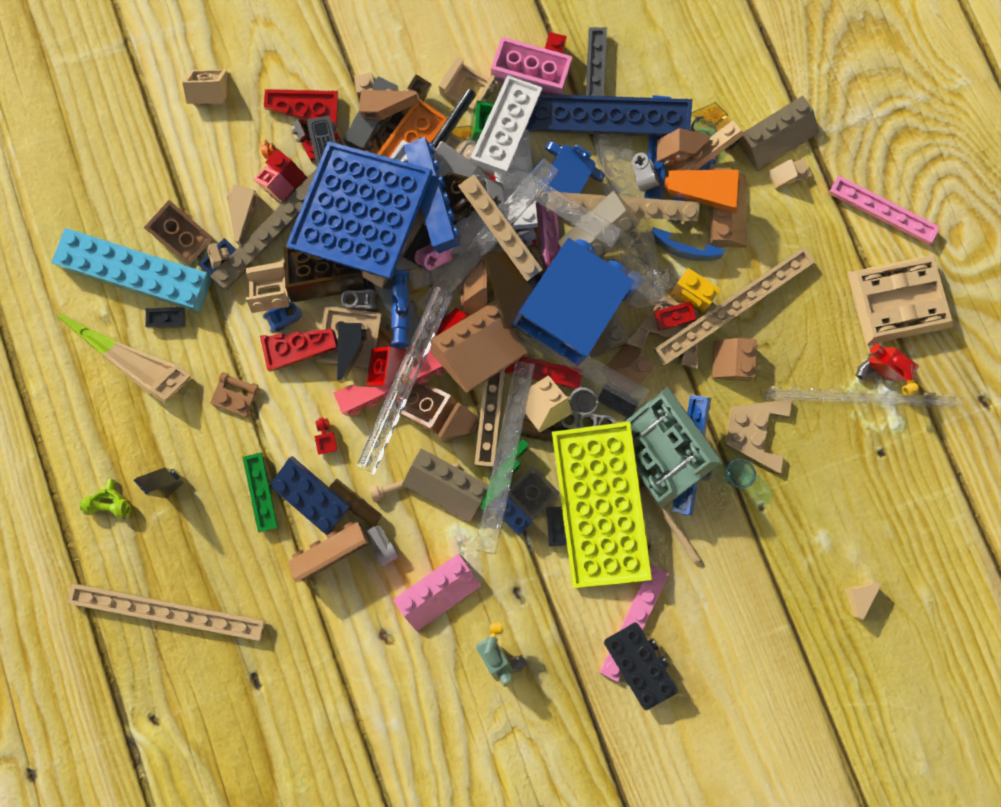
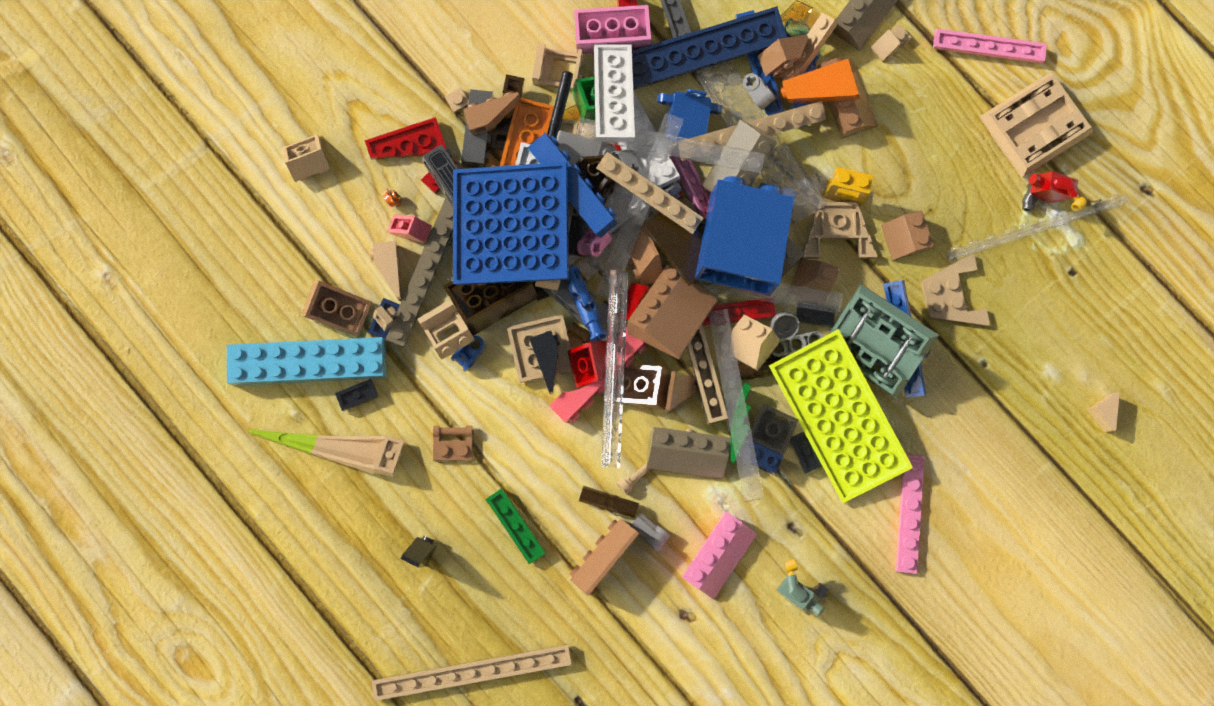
camera: 25 degrees left, 0 degrees up
(92, 504) = (360, 599): lime piece -> none
(287, 168) = (415, 207): red slope -> none
(289, 349) = (489, 380): red wing -> none
(301, 130) = (415, 164): dark brown tile -> none
(309, 495) = (564, 511): dark blue plate -> none
(326, 441) = (558, 455): red plate -> none
(361, 300) = (539, 309): light grey piece -> none
(642, 665) = (933, 549): black bracket -> none
(675, 316) = (838, 215): red plate -> none
(675, 528) = (911, 410): tan piece -> none
(709, 253) = (846, 144): blue slope -> none
(733, 306) = (888, 186): tan plate -> none
(740, 473) = (954, 339): clear light blue hair -> none

